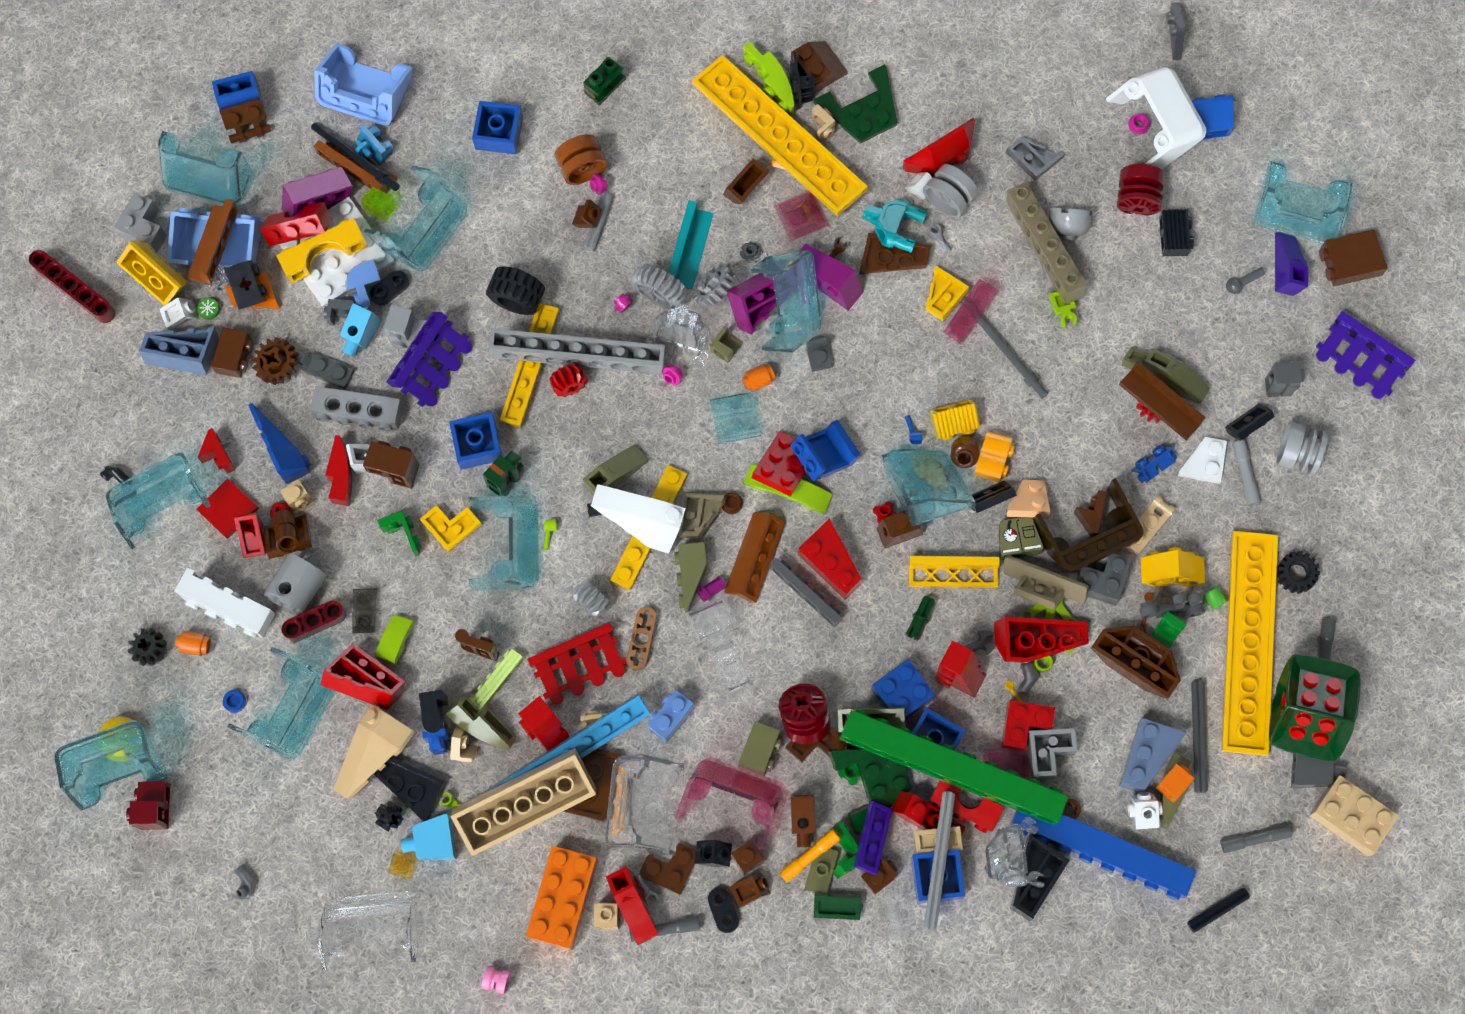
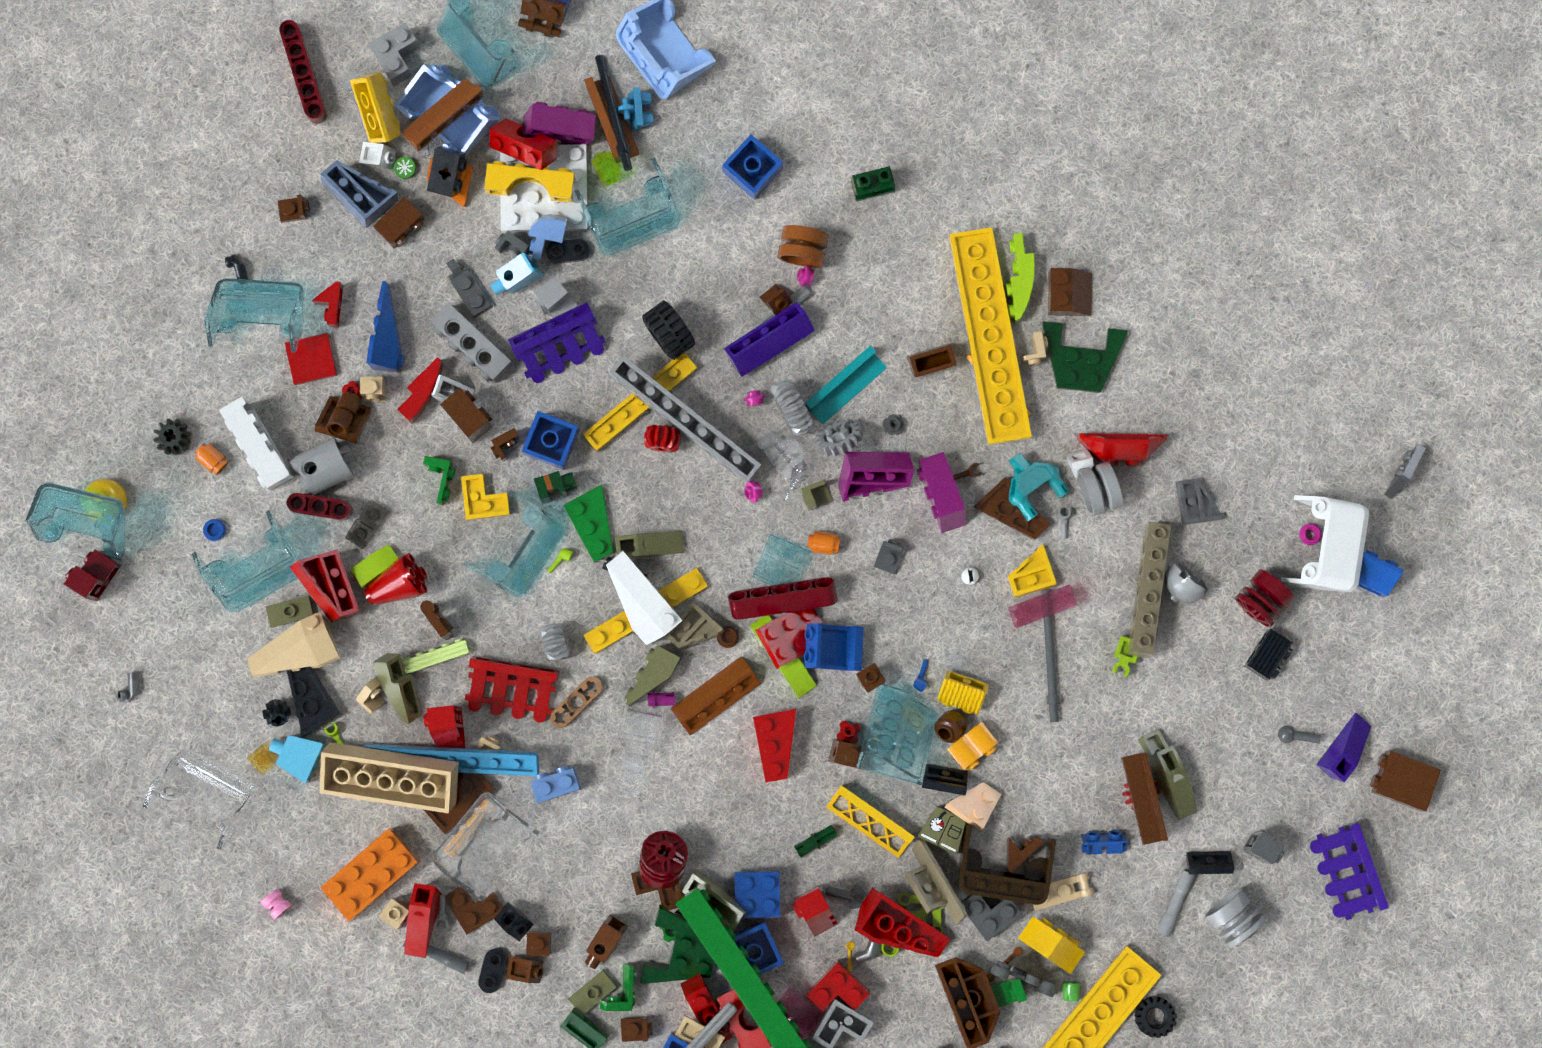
camera: 30 degrees right, 10 degrees up
(134, 399) = (293, 209): none -> reddish brown bracket
(250, 535) = (314, 397): red slope -> none
(277, 350) = (439, 255): reddish brown gear -> none
(343, 726) = (289, 611): none -> olive plate
(422, 638) = (398, 582): none -> red cone
(433, 720) = (361, 660): black hips -> none
(438, 465) = (507, 439): none -> reddish brown bracket
(555, 487) = (591, 522): none -> green wing
(603, 248) = (769, 339): none -> dark purple brick
(755, 440) = (782, 598): none -> dark red beam
(759, 748) = (609, 861): olive brick -> none
(763, 793) = (571, 879): clear pink windscreen -> none
(795, 299) = (899, 501): clear light blue windscreen -> none
(799, 585) = (739, 764): dark grey plate -> none
(801, 215) = (959, 420): clear pink slope -> none
(802, 86) = (1037, 307): black hinge -> none
(805, 859) = (603, 975): light orange piece -> none
(872, 455) = (870, 678): none -> reddish brown bracket
(873, 838) = (649, 997): dark purple tile -> none
(892, 329) = (965, 576): none -> white hinge
(1206, 461) = (1149, 870): white wing -> none
(1302, 208) = (1395, 705): clear light blue windscreen -> none

